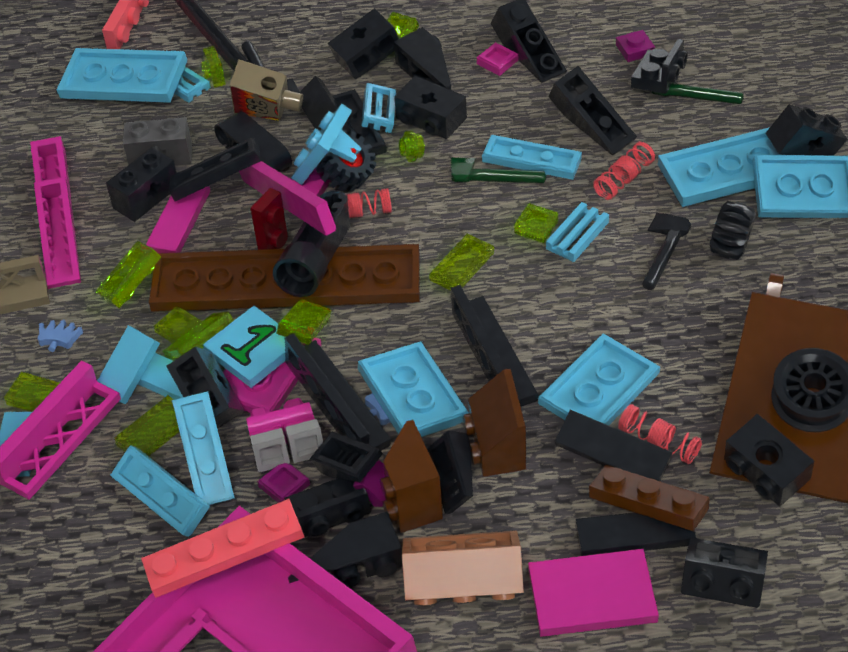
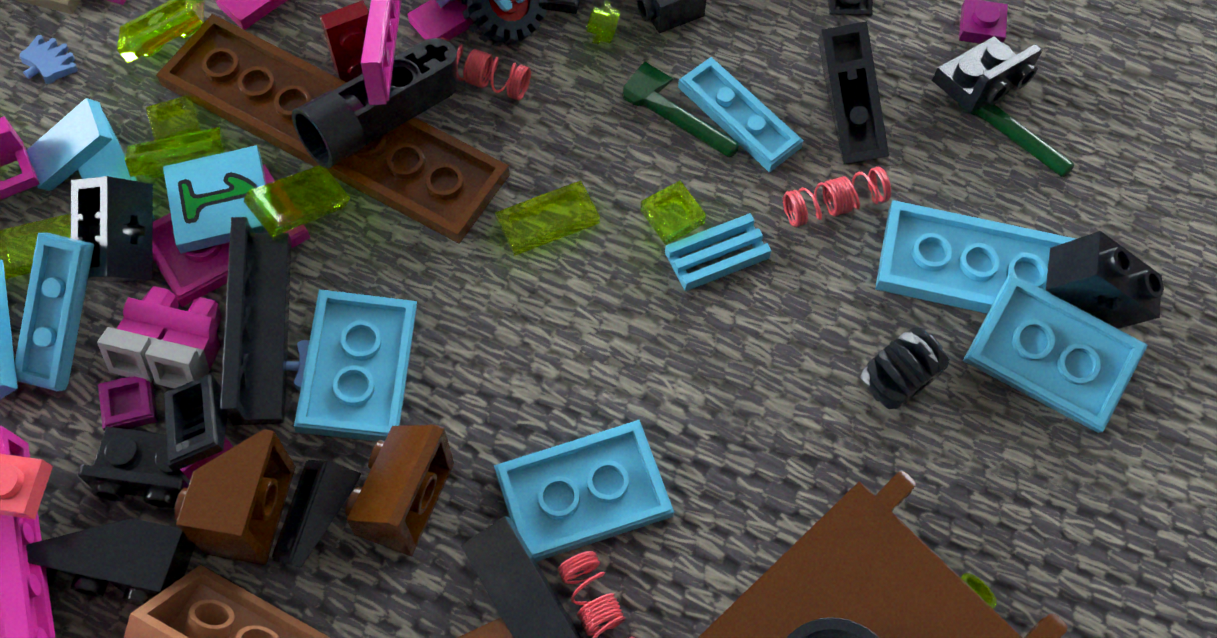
camera: 25 degrees right, 15 degrees up
(490, 342) = (488, 365): black fence -> none
(674, 228) = (844, 314): black piece -> none

